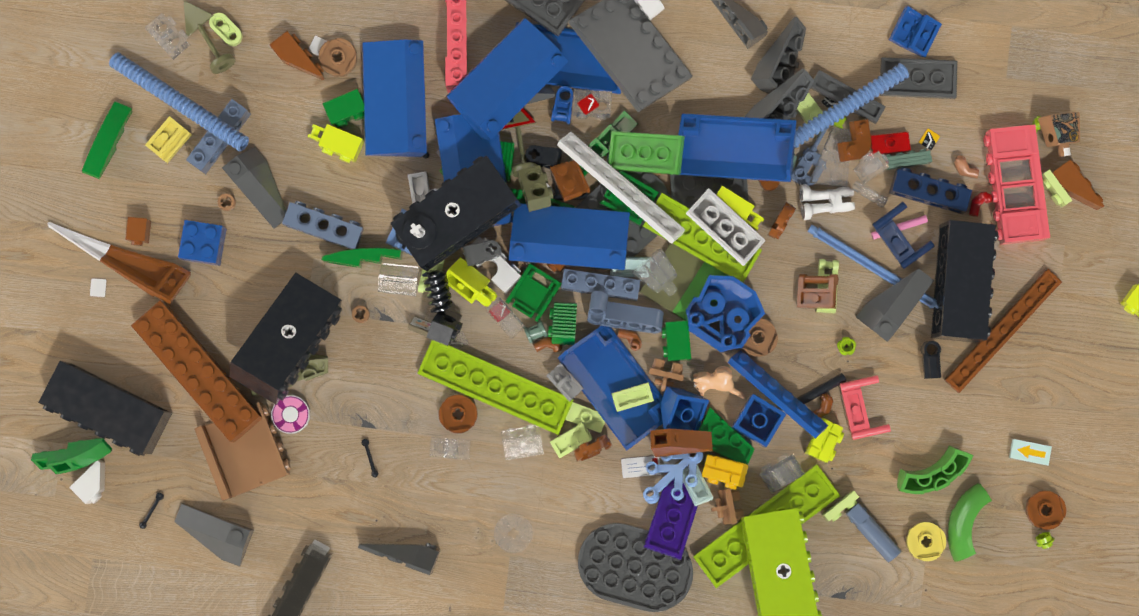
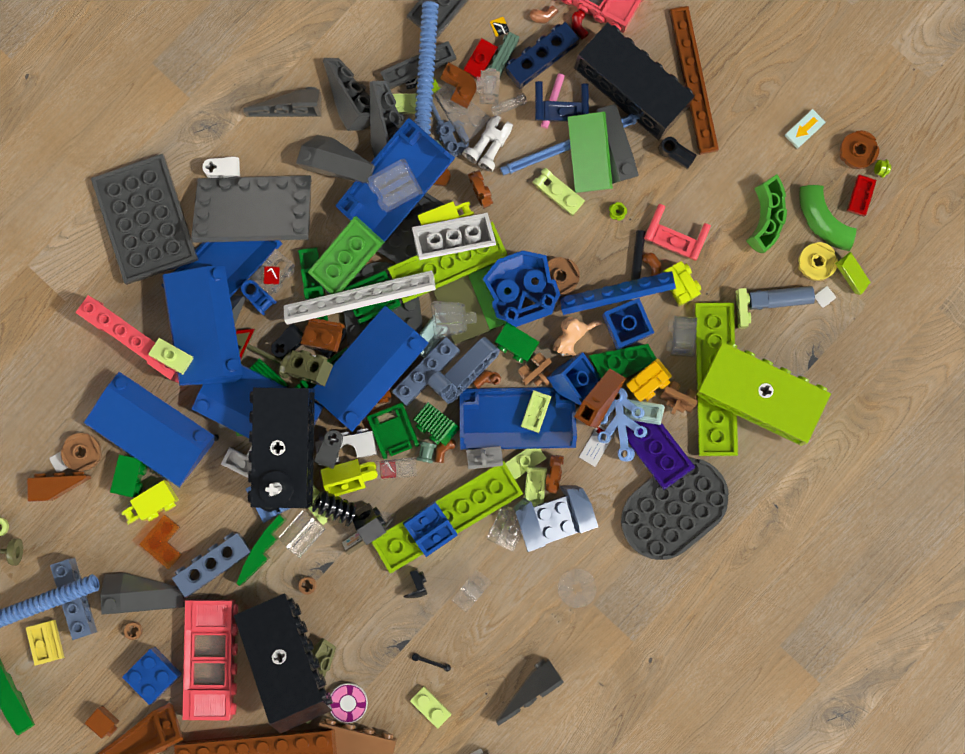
camera: 55 degrees left, 0 degrees up
(247, 279) = (209, 659): none -> coral window
(308, 170) = (158, 542): none -> clear orange plate
(334, 483) = (430, 707): none -> yellowish green plate
(428, 400) = (419, 580): none -> black plate
(449, 407) = (450, 574): dark orange plate -> none
(464, 72) = (171, 356): none -> yellowish green plate
(476, 379) = (430, 528): none -> blue slope
(557, 474) = (555, 518): none -> piece
(719, 85) = (332, 158): none -> dark grey wedge
(732, 149) = (394, 185): none -> clear brick
(815, 297) = (563, 204): plate -> none
(878, 288) = (590, 152): none -> bright green tile
(901, 568) = (825, 296): none -> white sticker
(937, 578) = (853, 273): none -> lime slope
(1008, 538) = (861, 195): none -> red plate

